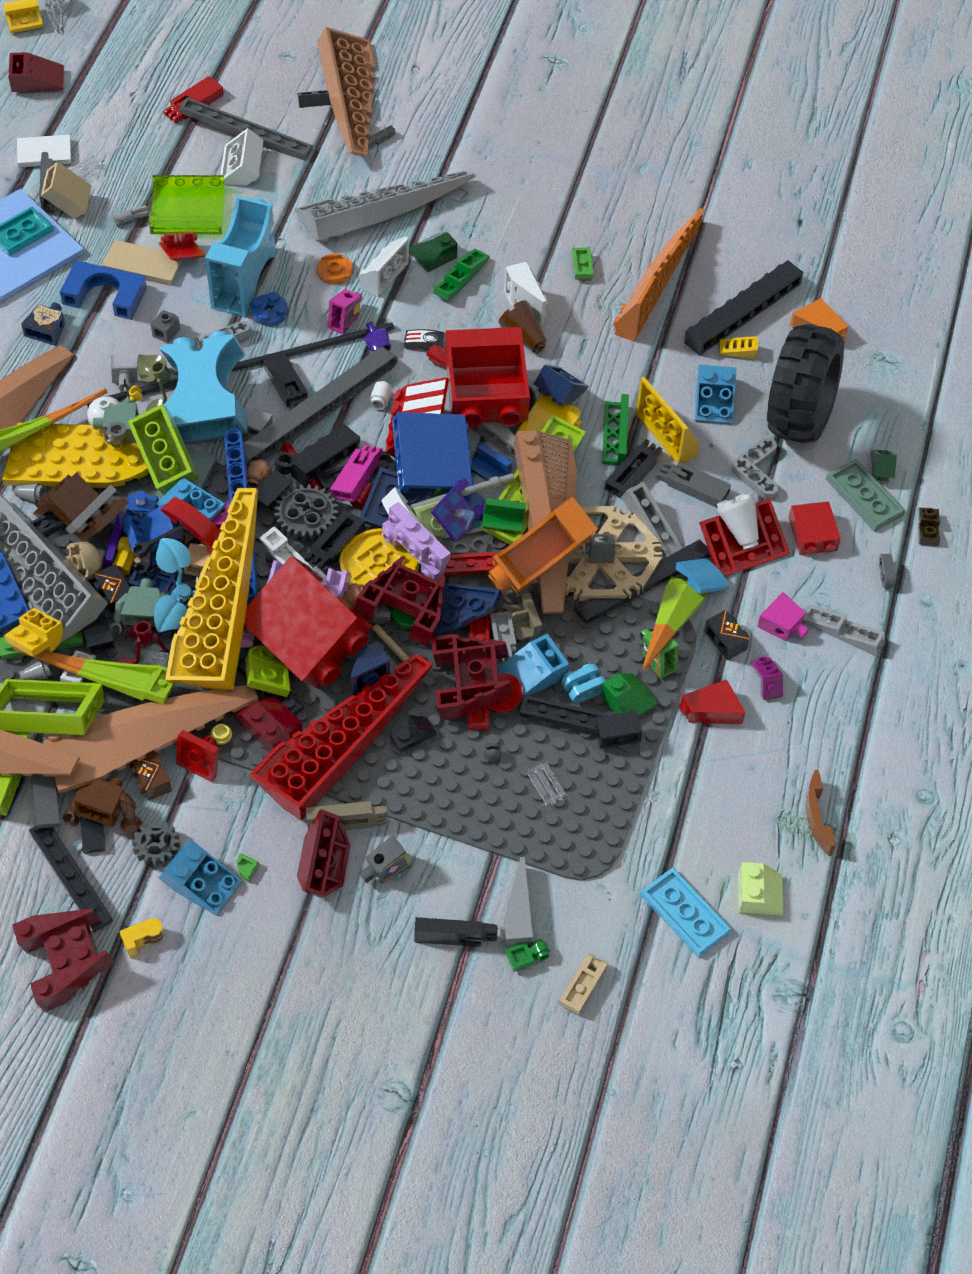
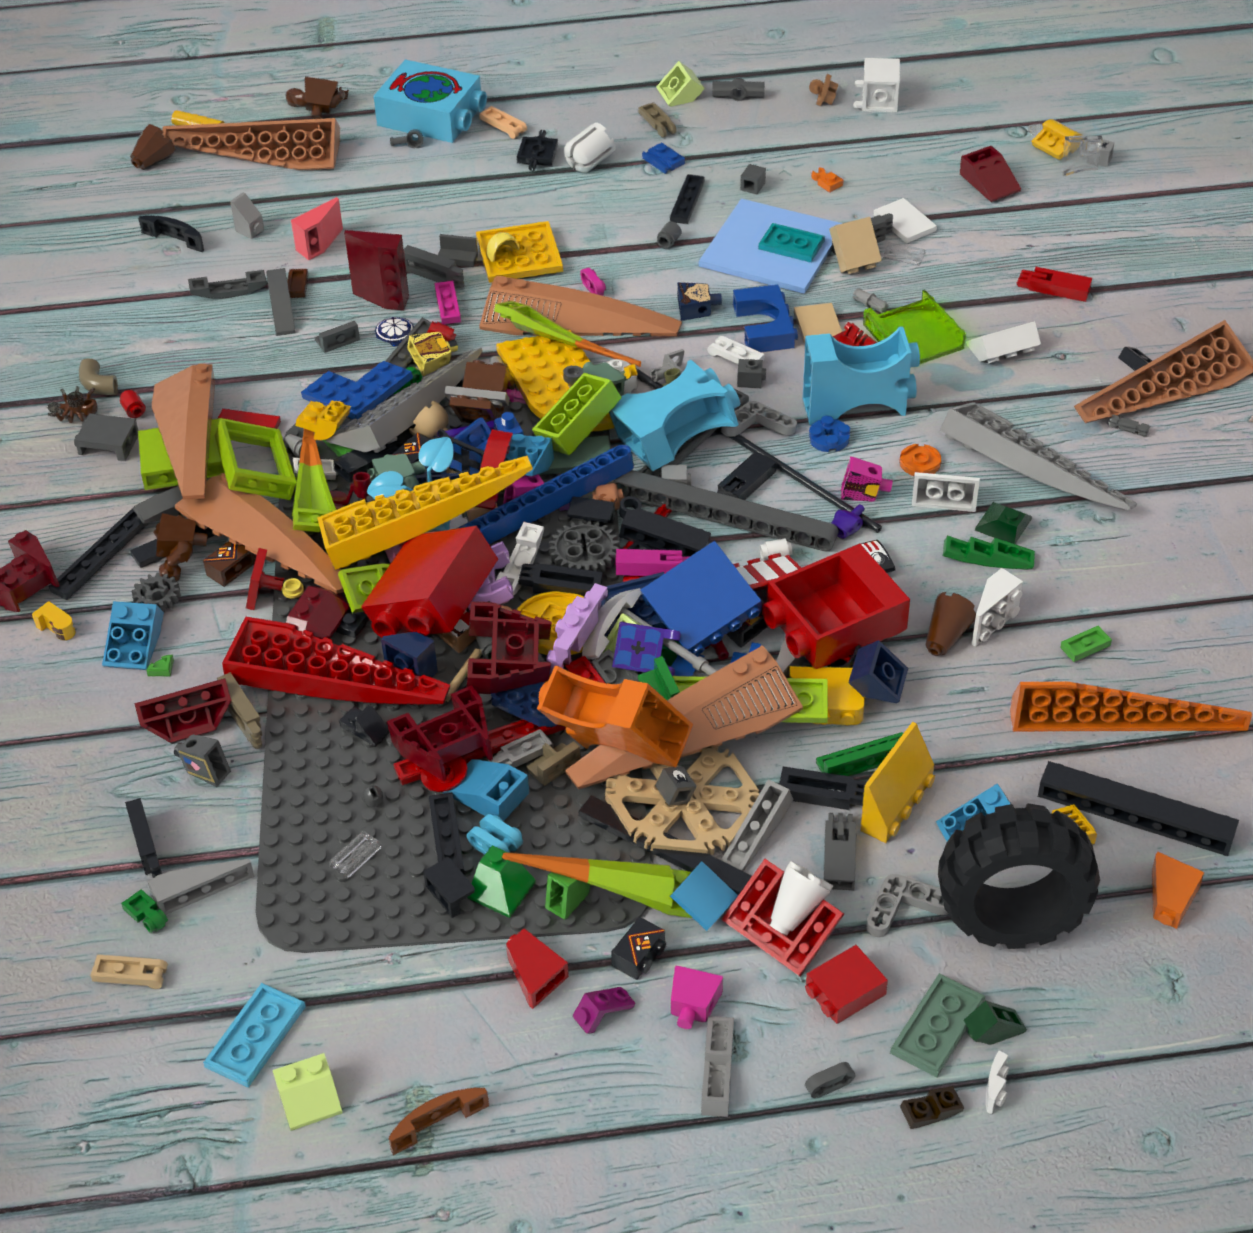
camera: 70 degrees right, 10 degrees down
(129, 325) = (733, 350): none -> white plate
(237, 125) = (1048, 330): dark grey tile -> none
(930, 486) = (996, 1084): none -> white slope

